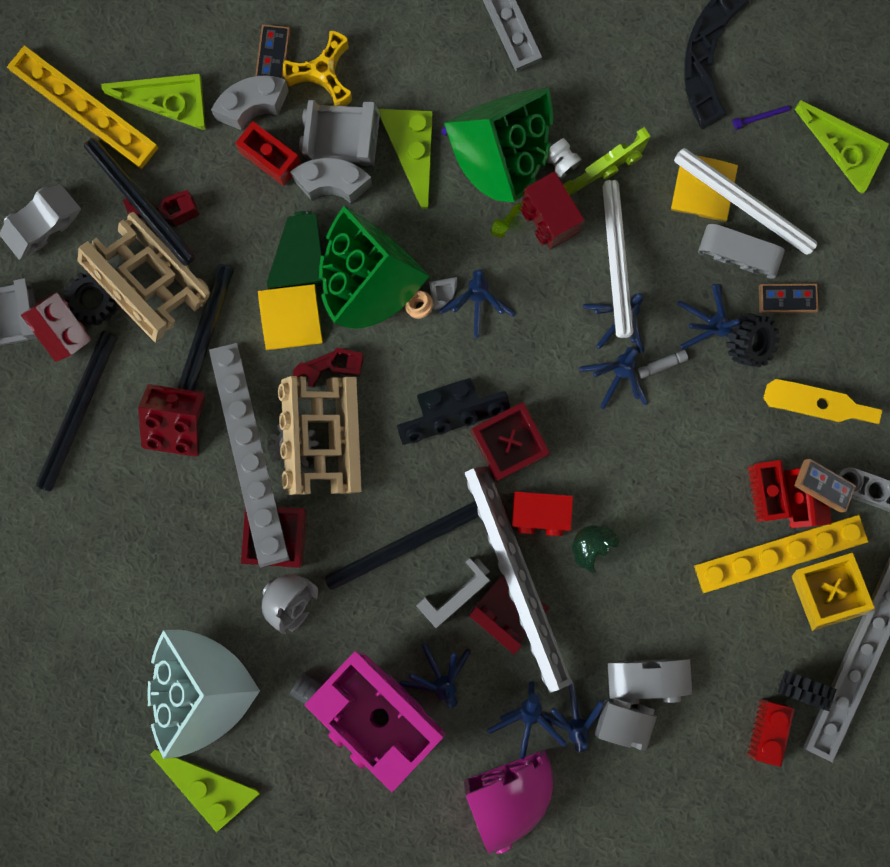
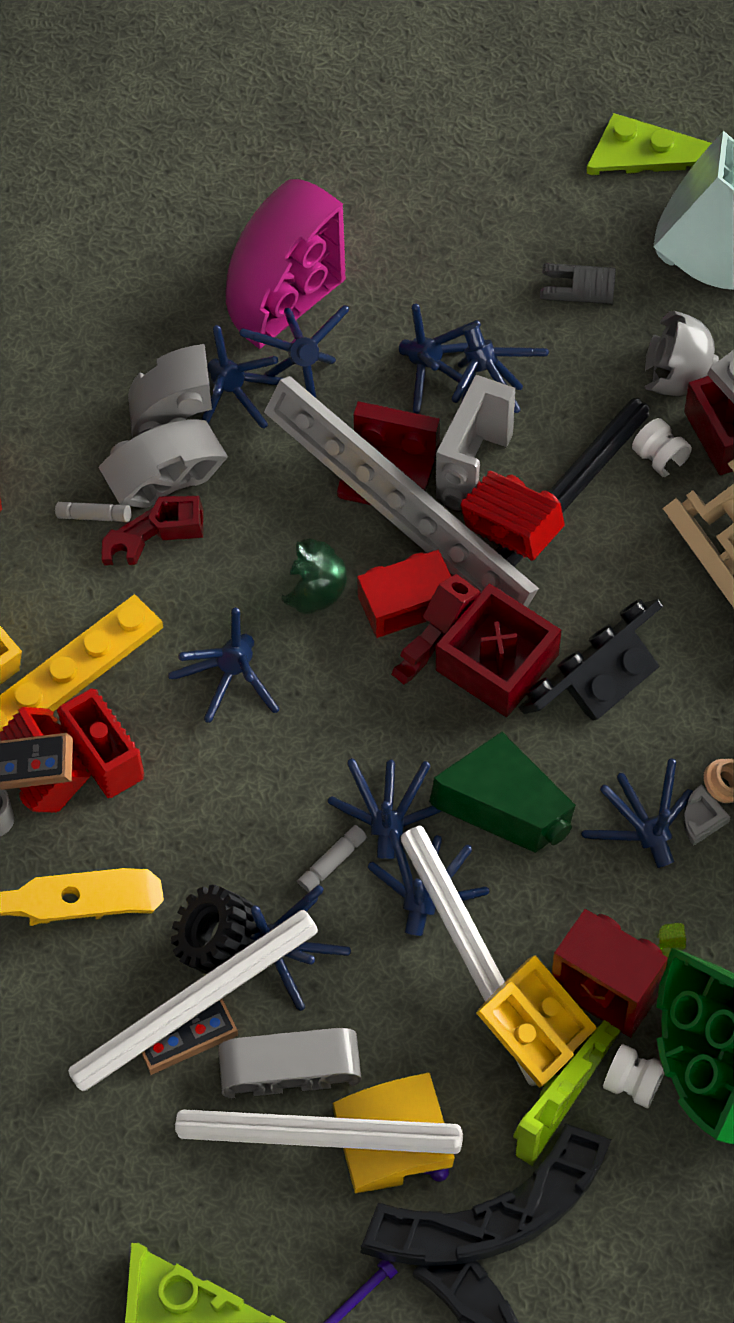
camera: 160 degrees right, 25 degrees down
(334, 542) = (659, 445): none -> white wheel
(348, 708) = (490, 260): dark pink brick -> none
(417, 650) = (482, 356): none -> dark blue plant
(455, 530) = (513, 514): none -> red brick
(533, 476) = (444, 609): none -> dark red piece
(549, 350) = (504, 795): none -> dark green slope
(605, 205) = (536, 1020): none -> yellow slope
(665, 515) = (232, 660): none -> dark blue plant
(672, 115) = (495, 1224): none -> black tile
(689, 636) = (135, 533): none -> dark red piece
(706, 666) = (93, 511): none -> light grey wheel
(781, 302) = (192, 1000): none -> white axle

